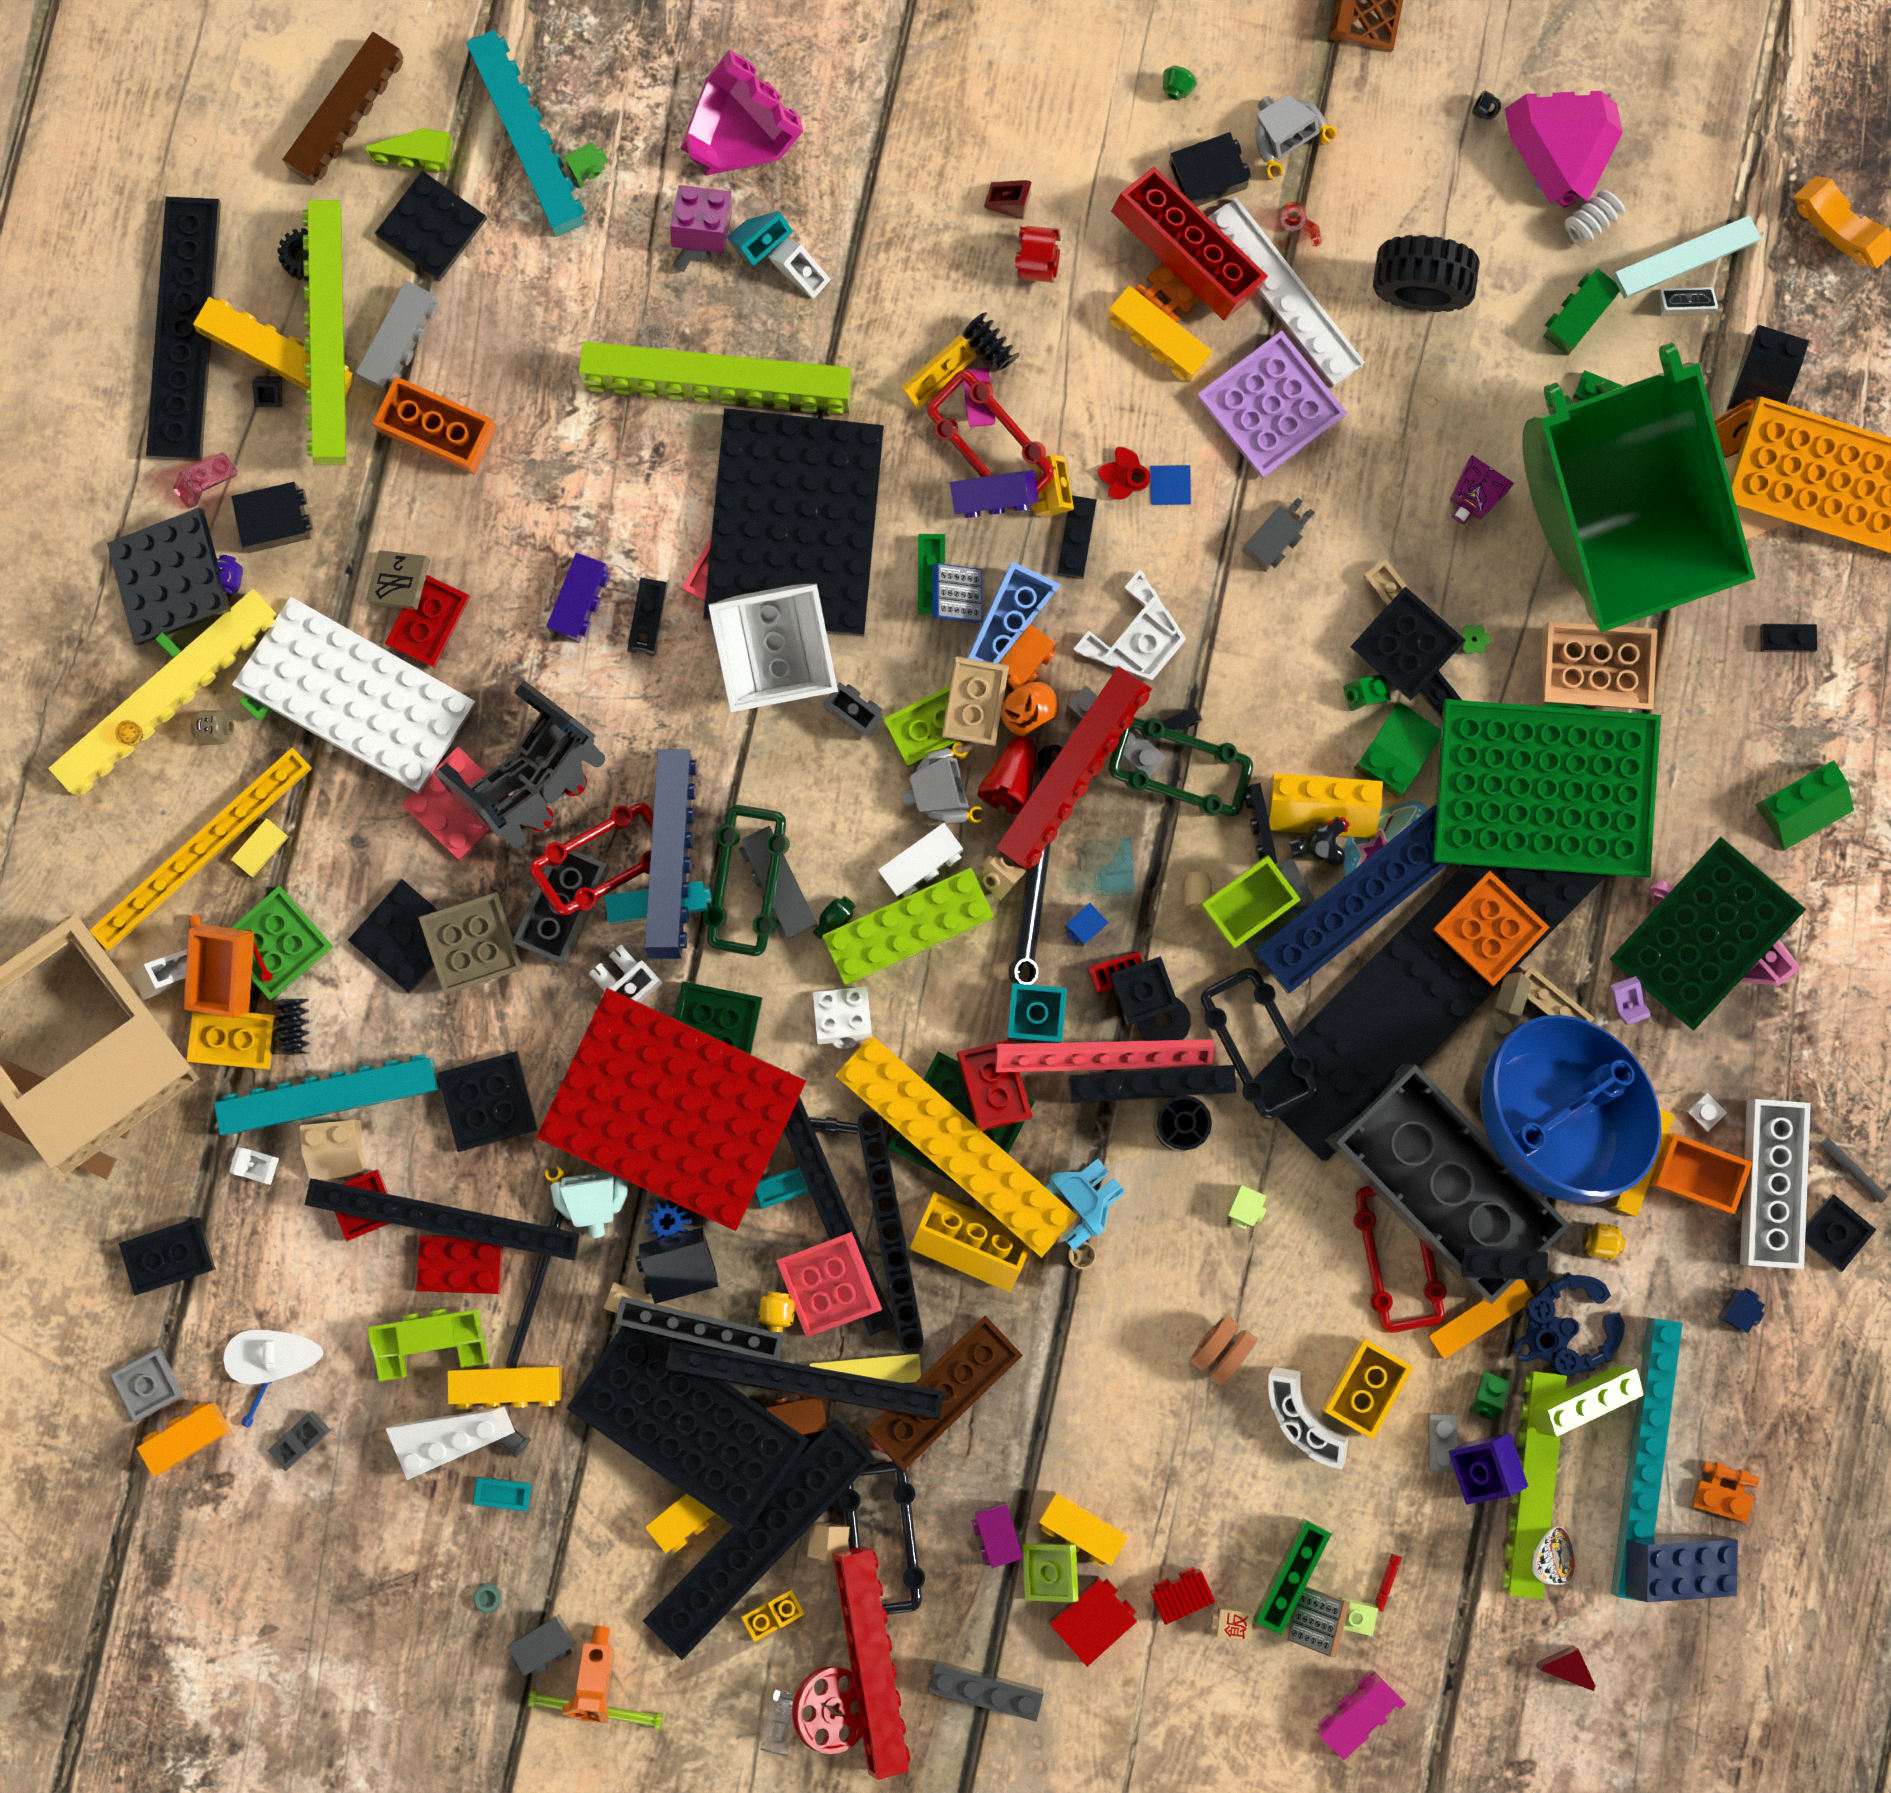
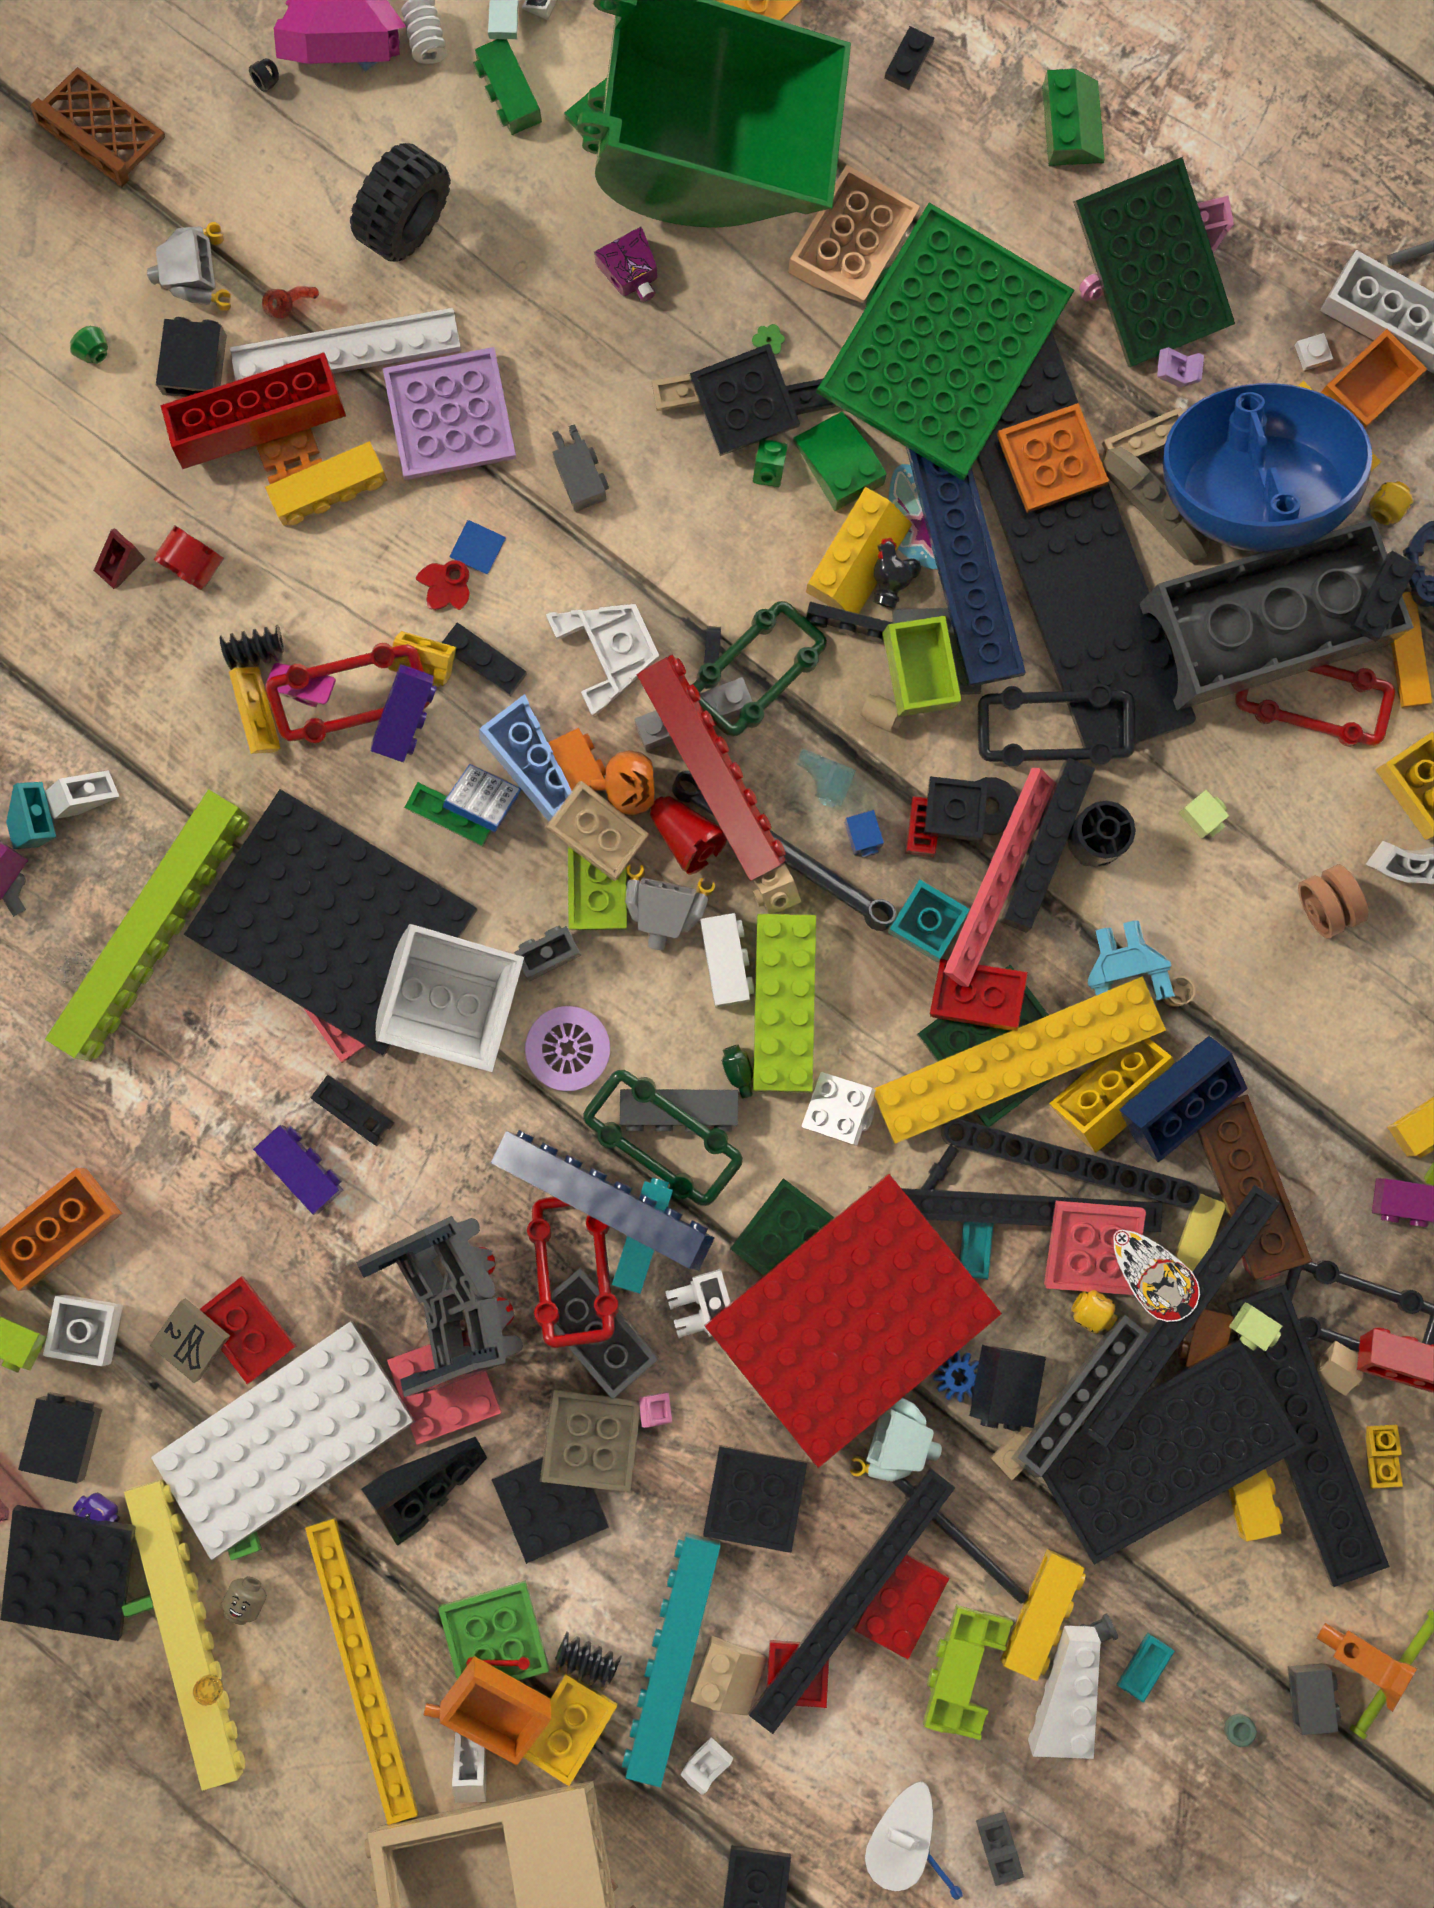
camera: 70 degrees left, 0 degrees up
(259, 847) = (389, 1609): light yellow tile -> none
(364, 820) = (413, 1490): none -> black wedge
(365, 491) = (82, 1330): none -> white brick
(521, 984) = (655, 1410): none -> bright pink tile
(793, 739) = (545, 1025): none -> lavender piece
(824, 1449) = (1256, 1328): none -> yellowish green brick
(827, 1344) = (1156, 1277): none -> shield
(990, 1299) = (1183, 1098): none -> dark blue brick

